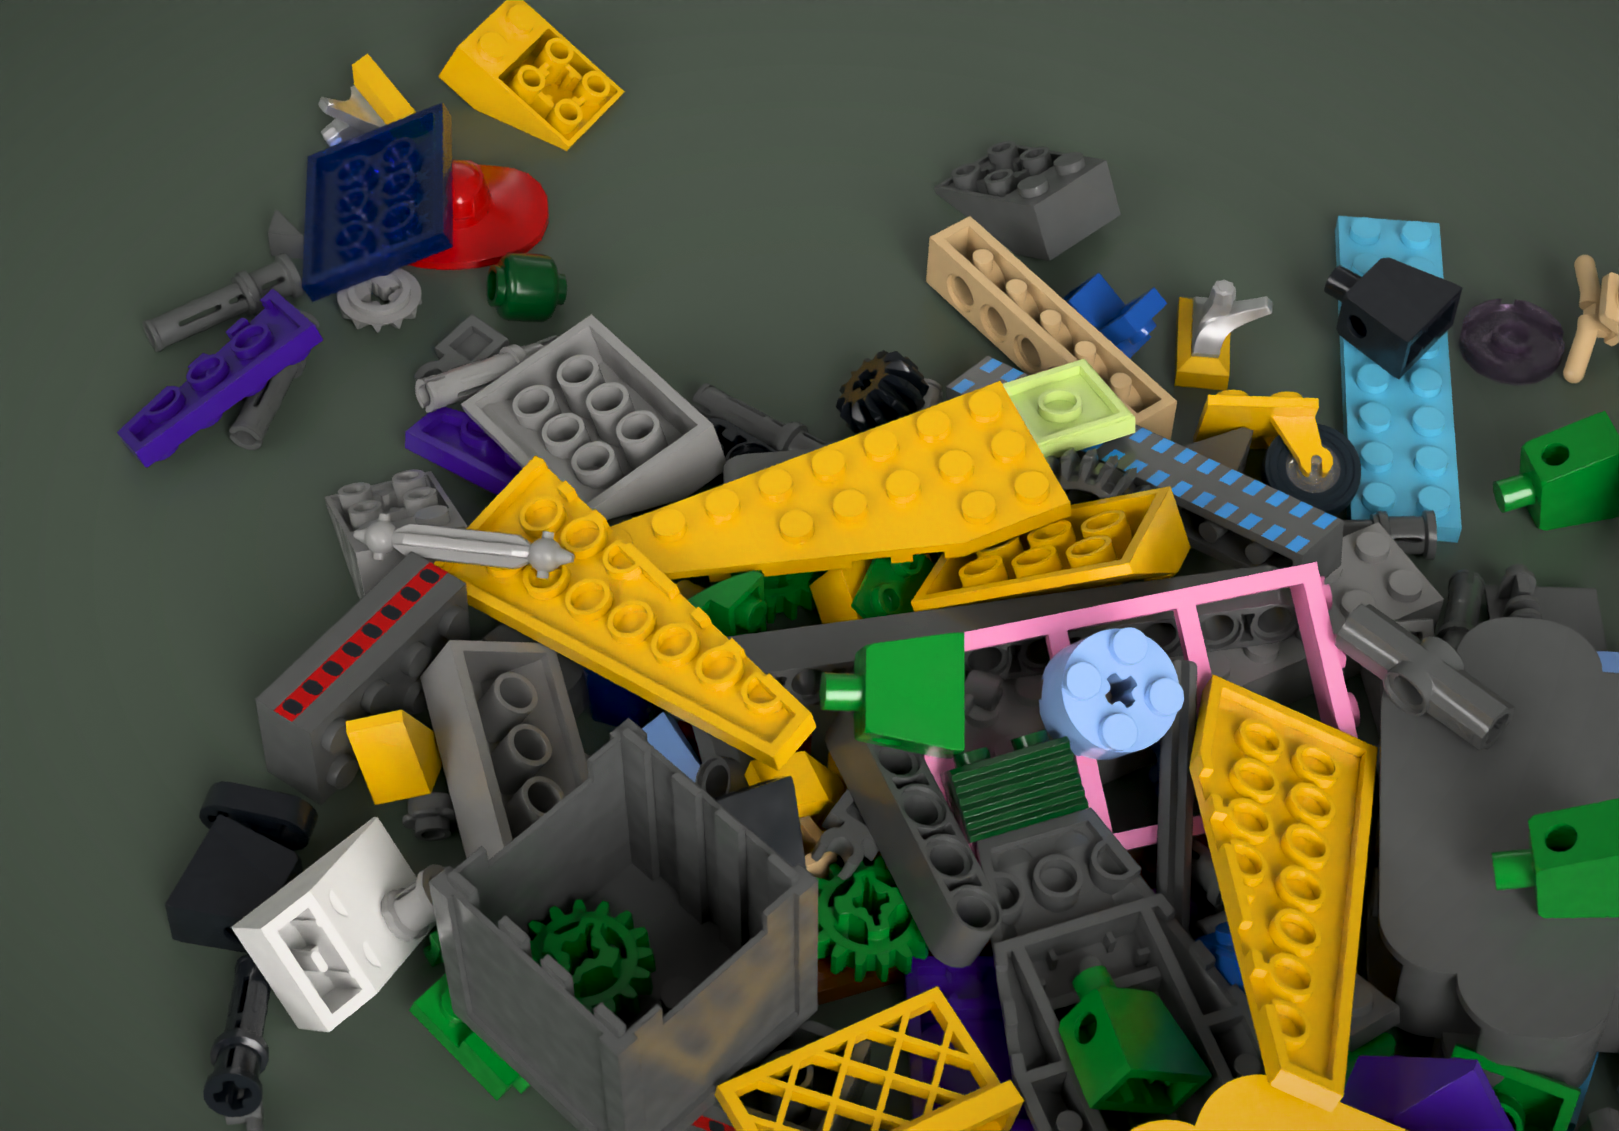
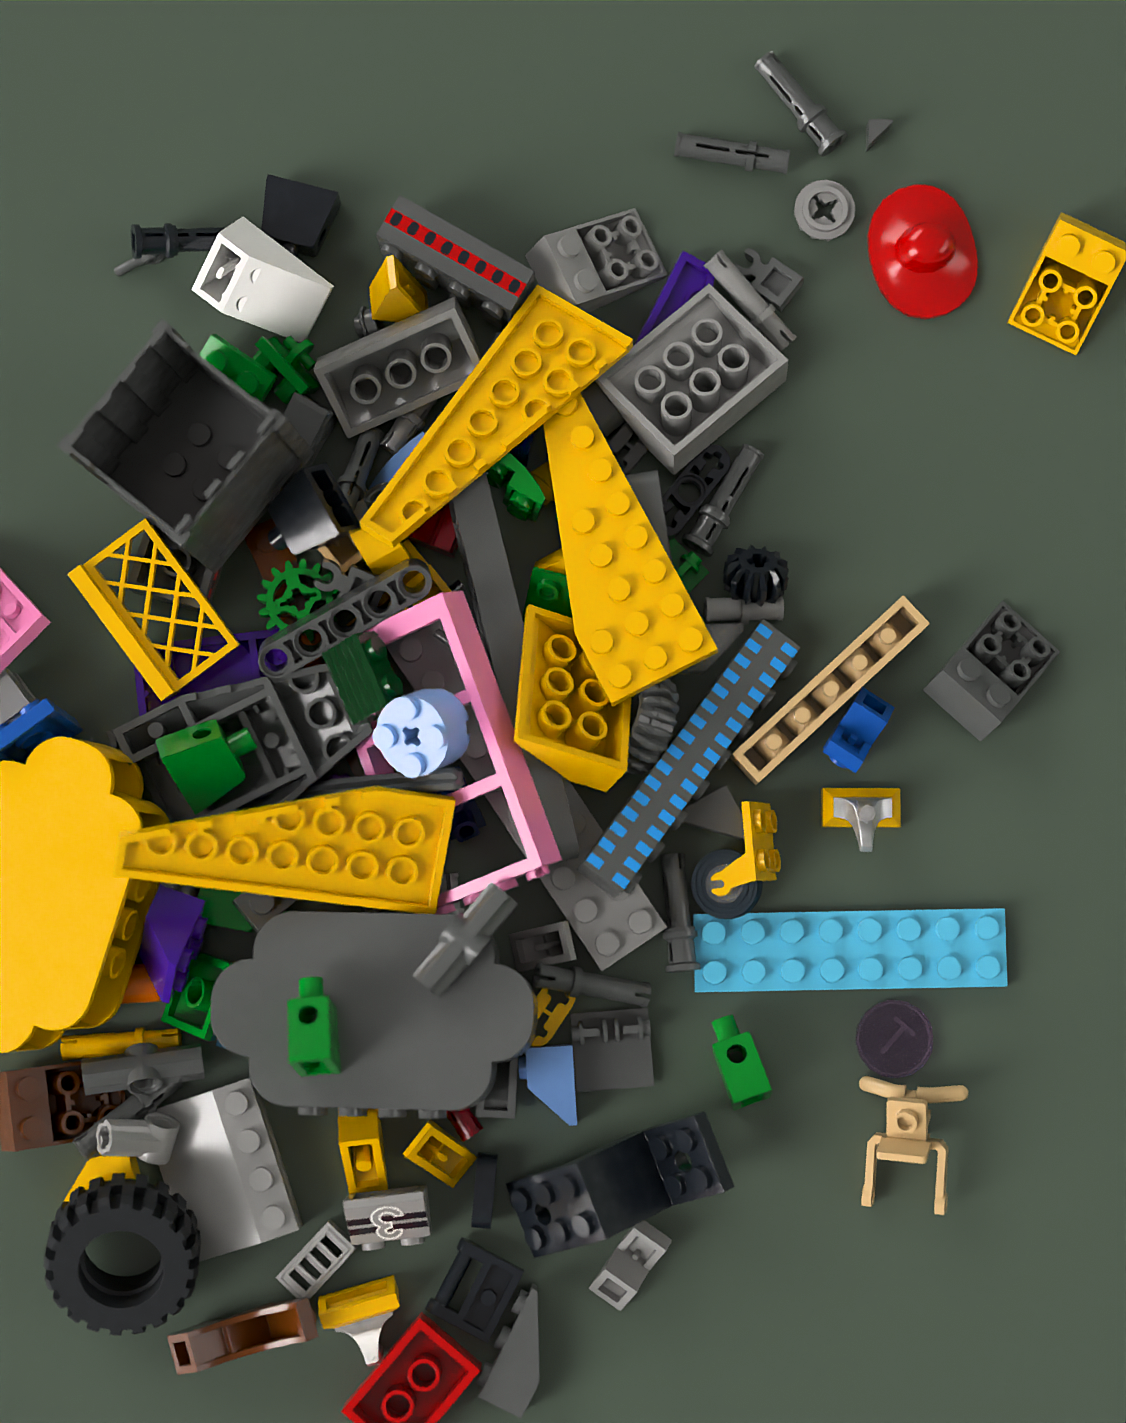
camera: 85 degrees right, 35 degrees up
(220, 380) = (716, 118): dark purple wing -> none
(270, 813) = (355, 217): black beam -> none
(371, 105) = (1017, 172): piece -> none
(378, 202) = (902, 191): clear blue plate -> none
(411, 909) = (271, 327): light grey bush -> none
(464, 546) = (541, 304): light grey wheel -> none
(525, 287) = (840, 311): dark green head -> none
(583, 949) = (202, 410): green gear -> none
(905, 694) = (400, 597): green torso -> none
(1069, 408) = (721, 696): yellowish green plate -> none
(1393, 311) = (881, 942): black torso -> none

